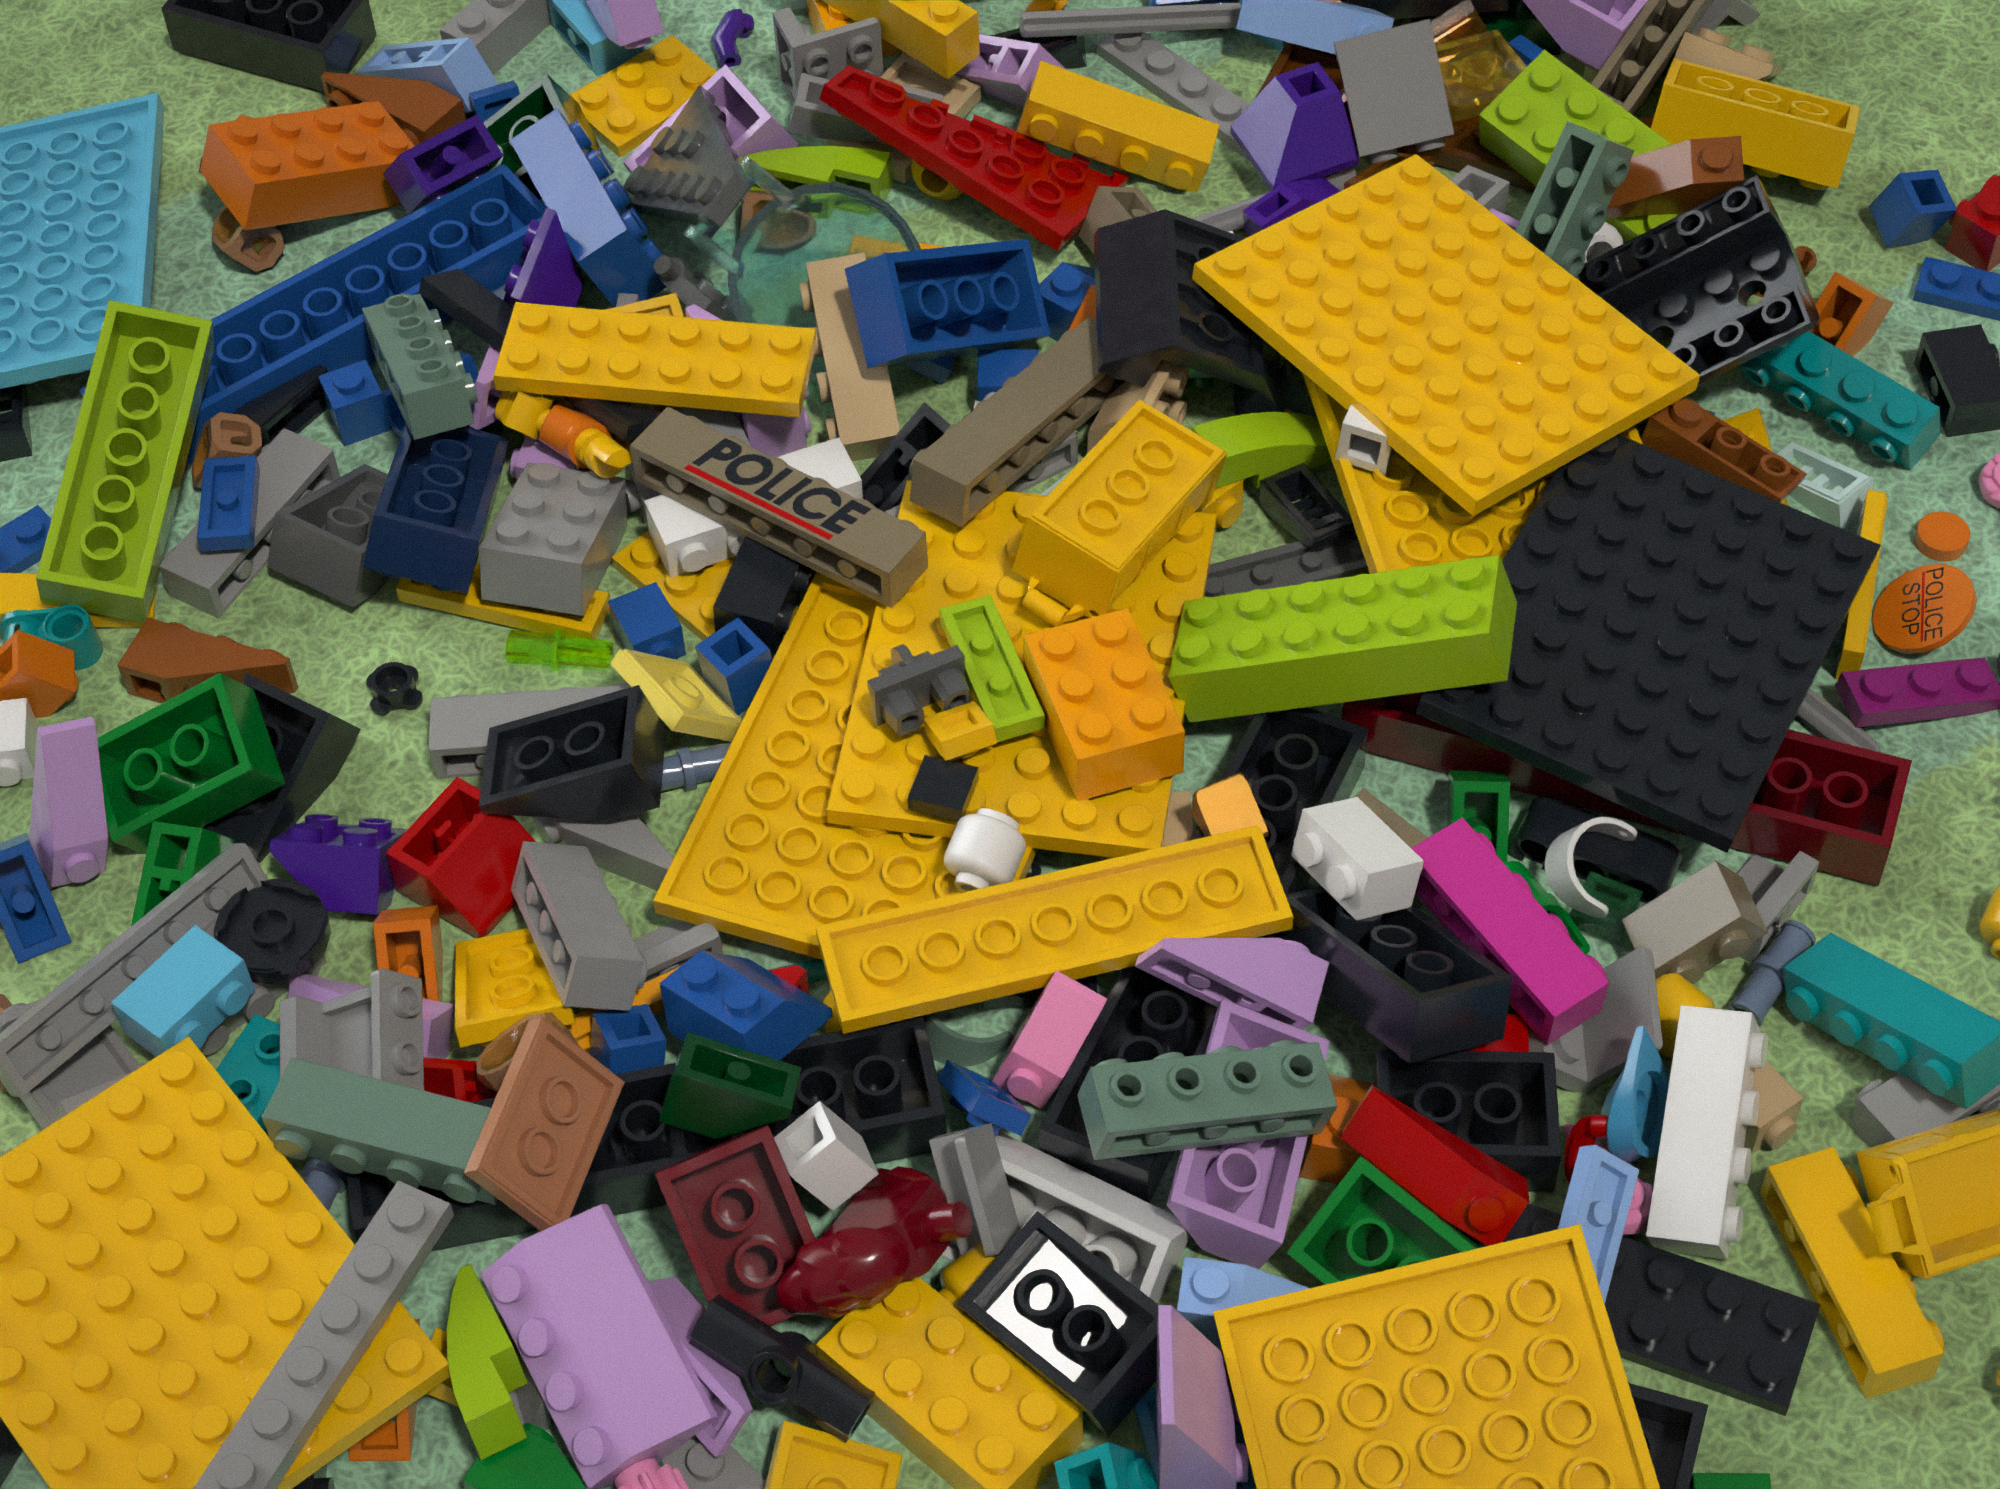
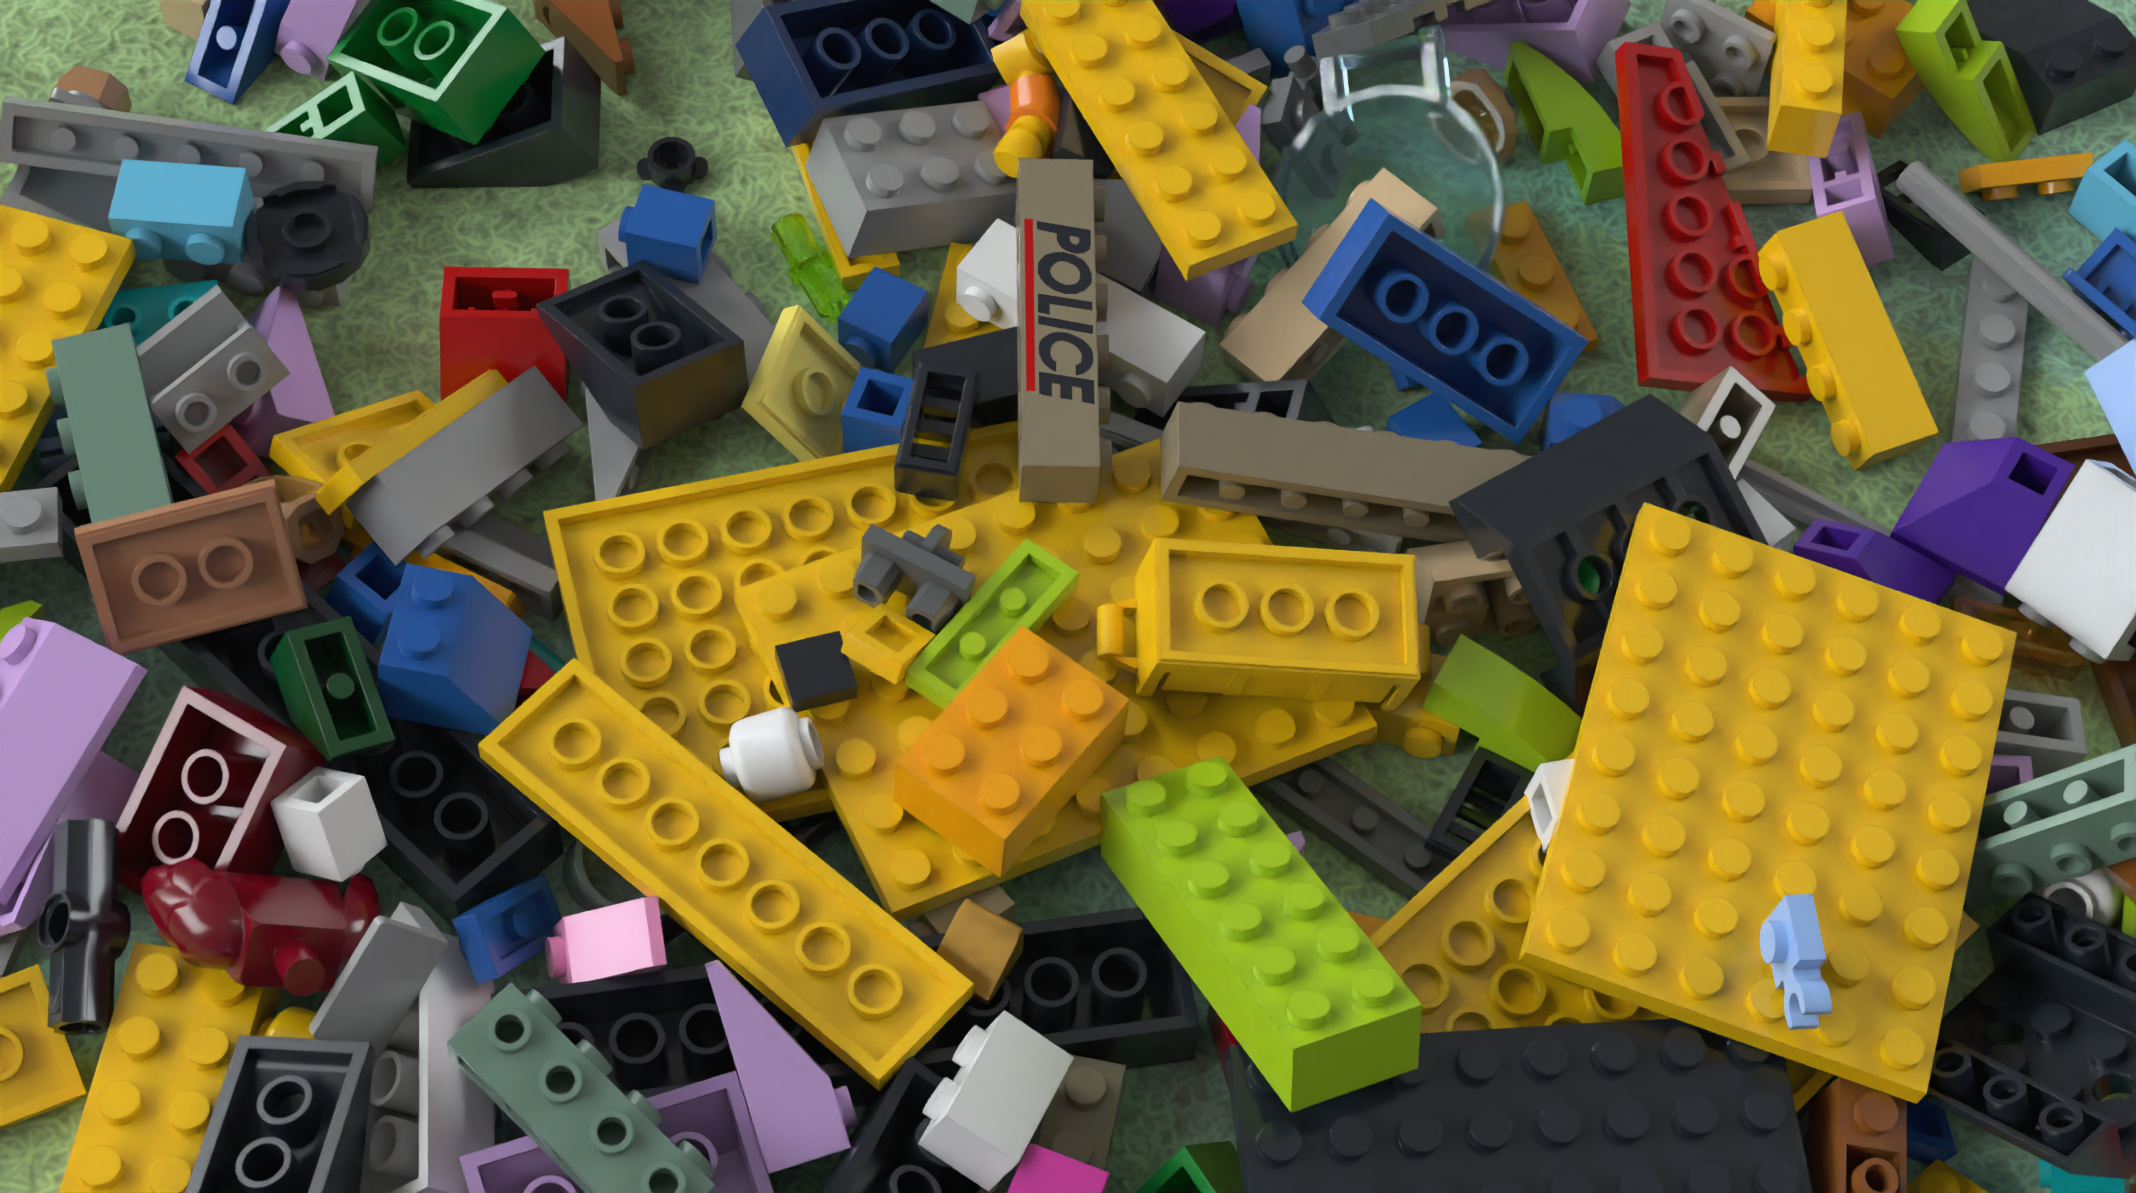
camera: 50 degrees right, 5 degrees up
(341, 861) = (432, 227): dark purple slope -> none
(412, 945) = (374, 357): orange slope -> none
(483, 696) = (670, 232): none -> blue brick
(534, 943) = (367, 465): none -> yellow tile
(692, 767) = (736, 446): sand blue pin -> none
(812, 652) = (928, 468): none -> black slope
(1581, 366) = (1795, 949): none -> light blue plate

